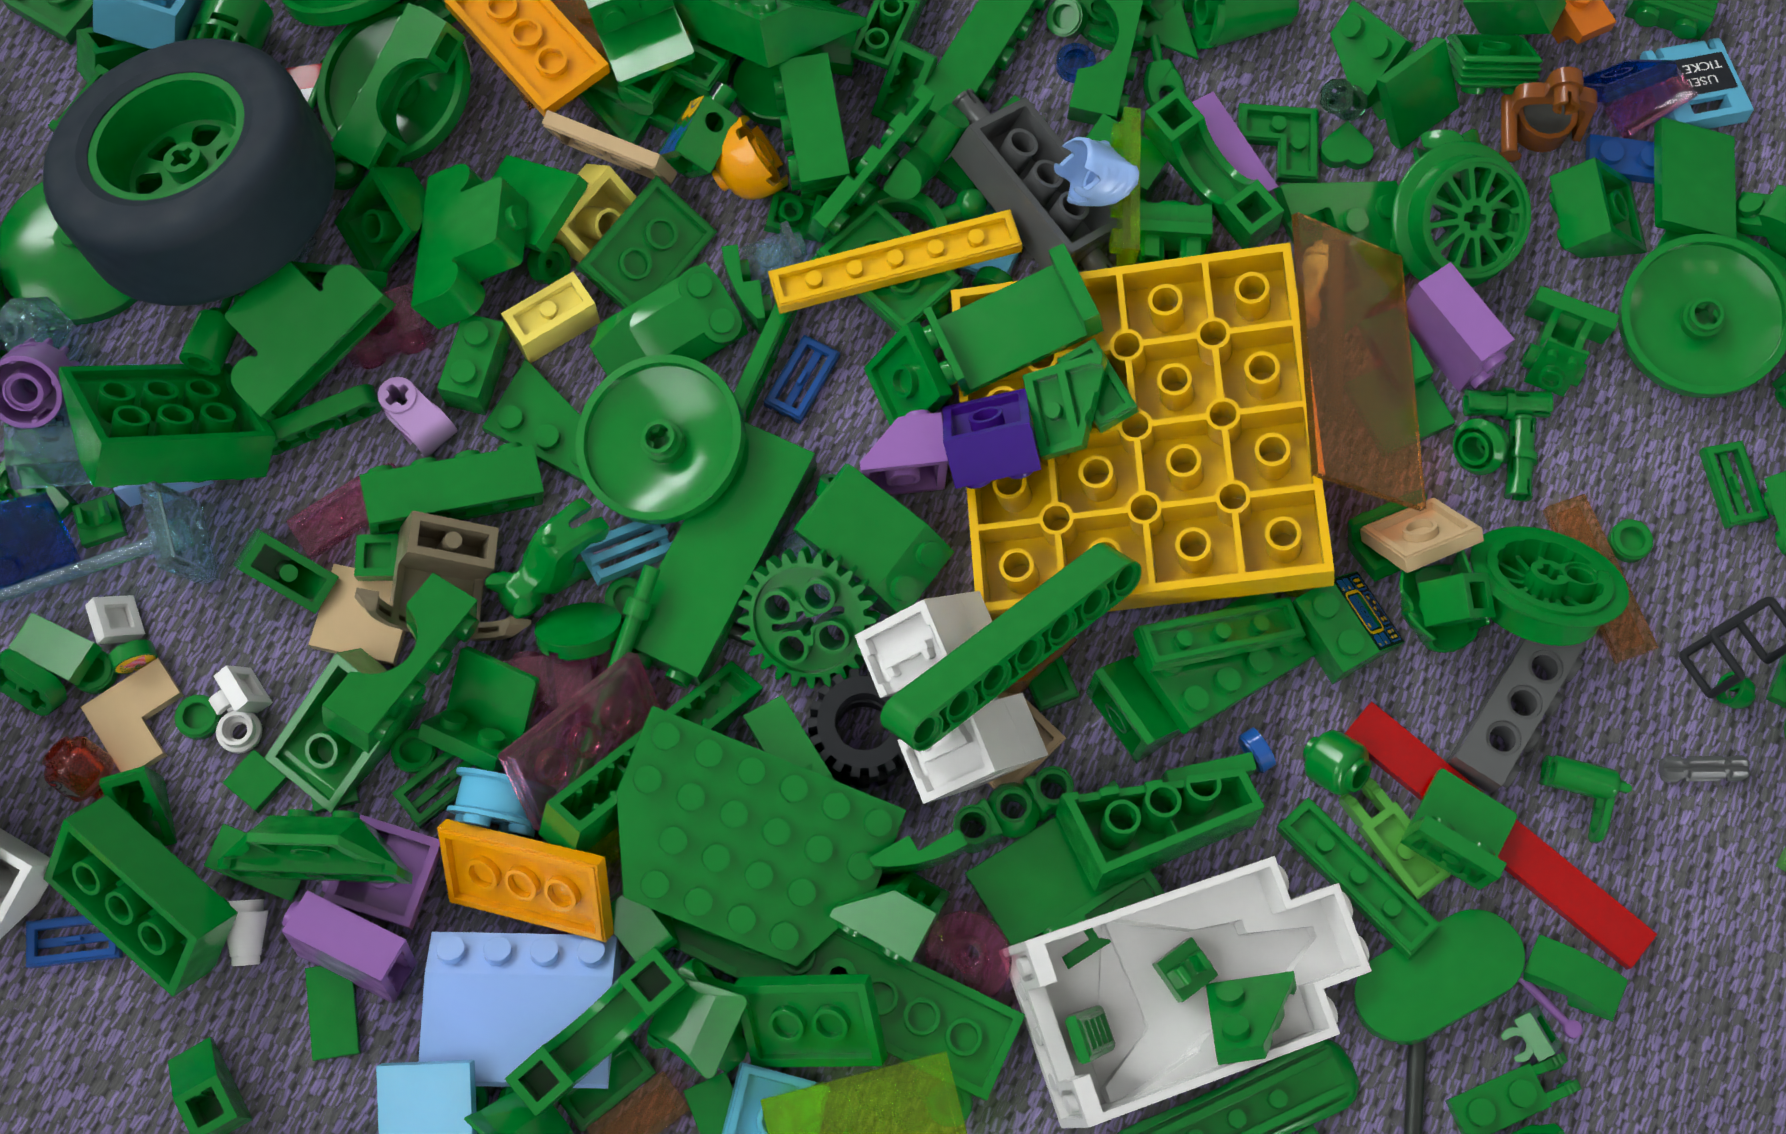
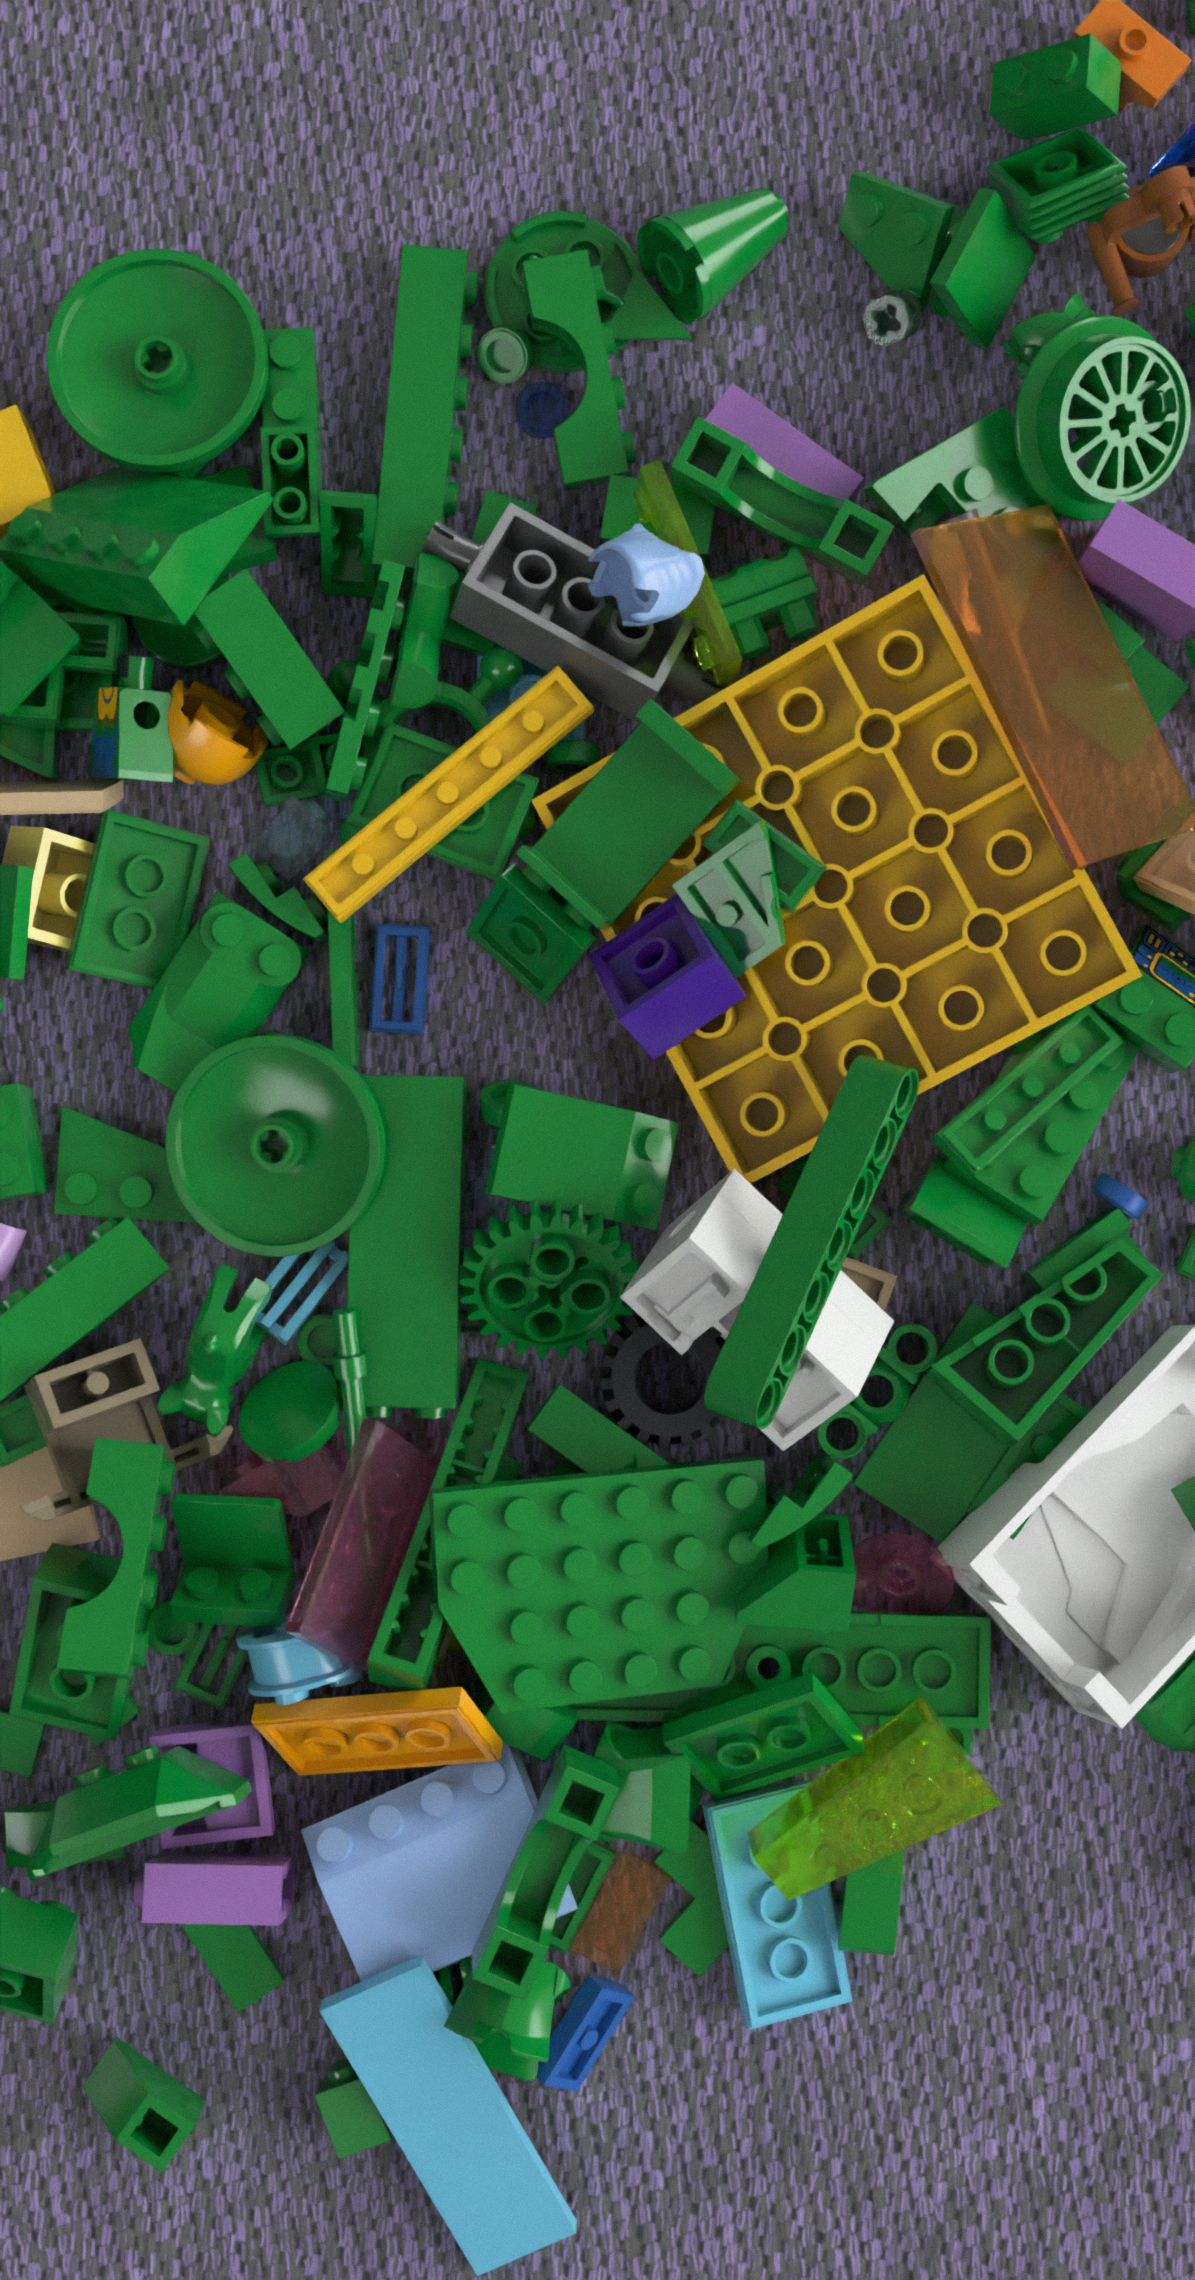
camera: 25 degrees left, 15 degrees up
(247, 932) = (98, 1919): white cone -> none
(549, 266) = (39, 977): green tile -> none
(551, 317) = (66, 1044): light yellow panel -> none
(909, 455) = (573, 1030): medium lavender slope -> none
(1090, 1034) = (1070, 1612): green slope -> none
(1160, 74) = (658, 381): green hand -> none
(1185, 969) = (1142, 1484): green tile -> none
(1291, 131) = (840, 384): green tile -> none
(1347, 148) = (920, 377): green tile -> none

